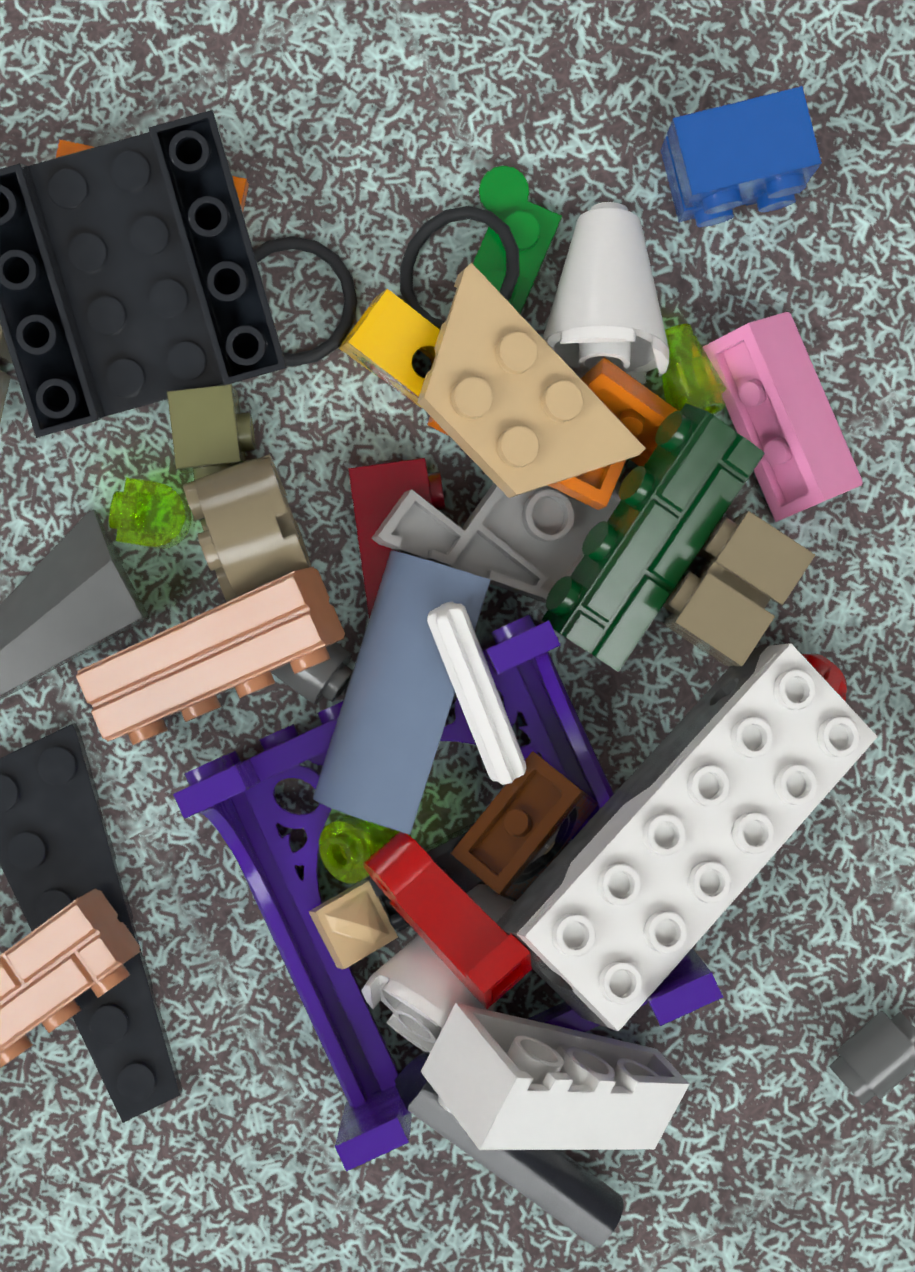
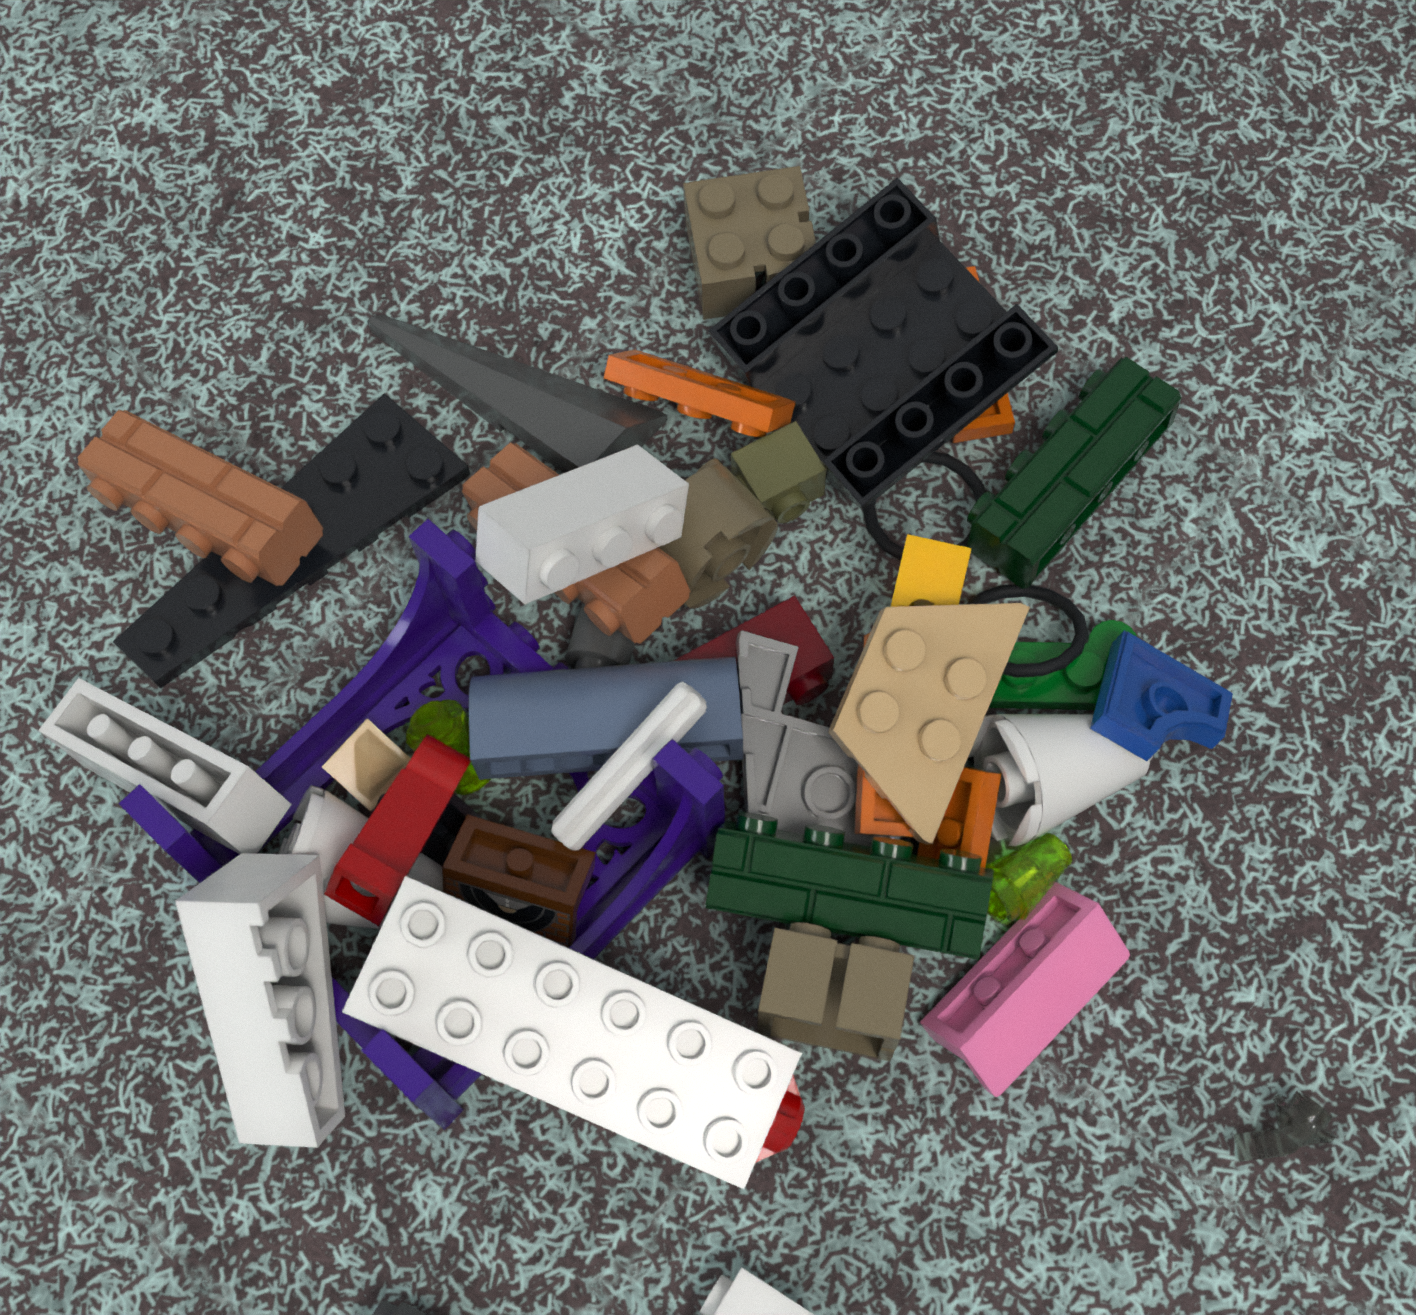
camera: 70 degrees right, 20 degrees down
(90, 470) = (699, 392): none -> orange plate
(149, 515) = (680, 444): clear neon green plate -> none
(233, 649) = (580, 523): none -> white brick
(293, 1115) = (179, 771): none -> white brick
(321, 146) = (1072, 471): none -> dark green brick
(543, 1176) = (174, 1040): brick -> none
(580, 181) = (1156, 699): none -> blue tile
(740, 156) = (1251, 829): blue piece -> none

